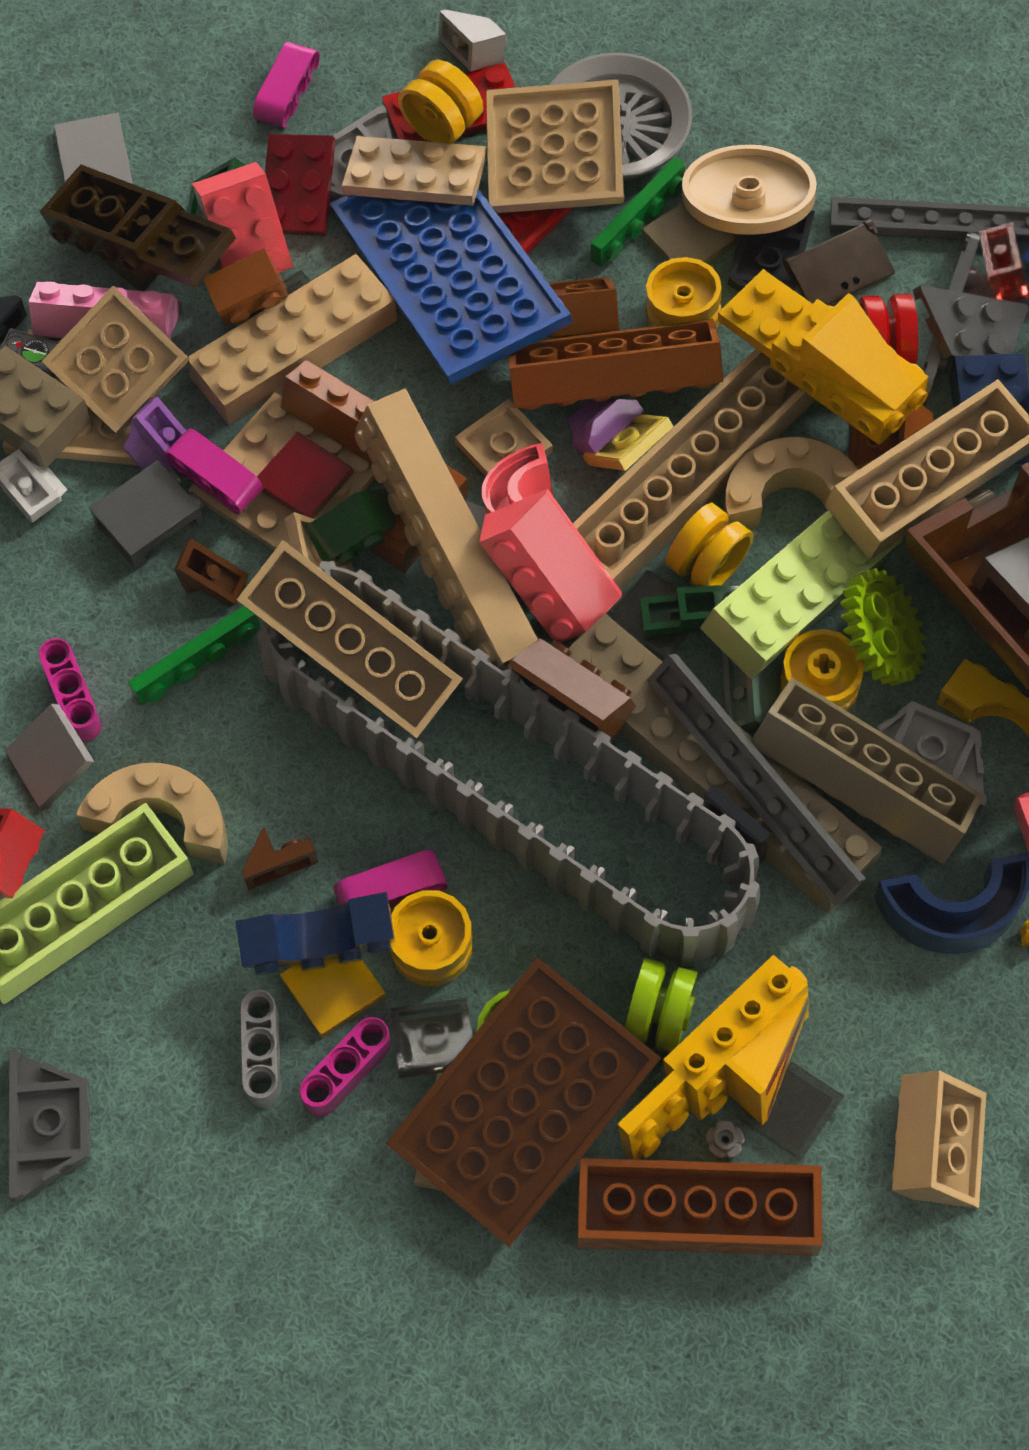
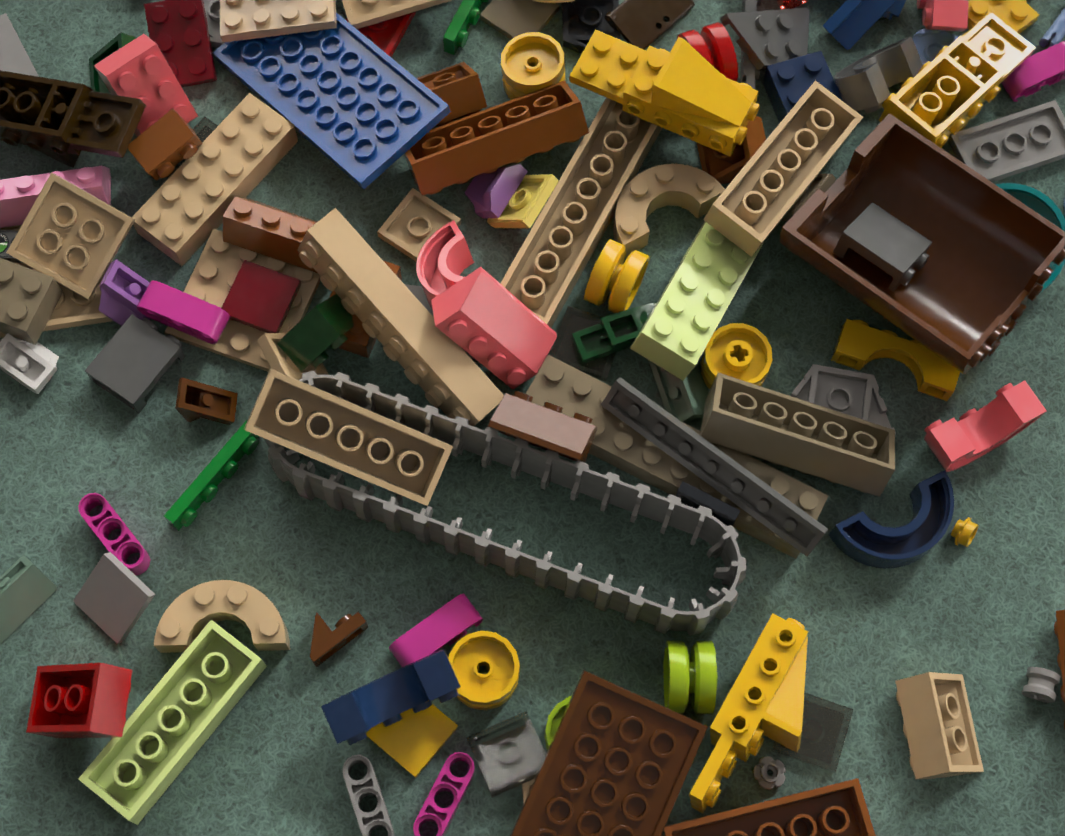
camera: 20 degrees left, 5 degrees up
(883, 627) = (776, 309): lime gear -> none

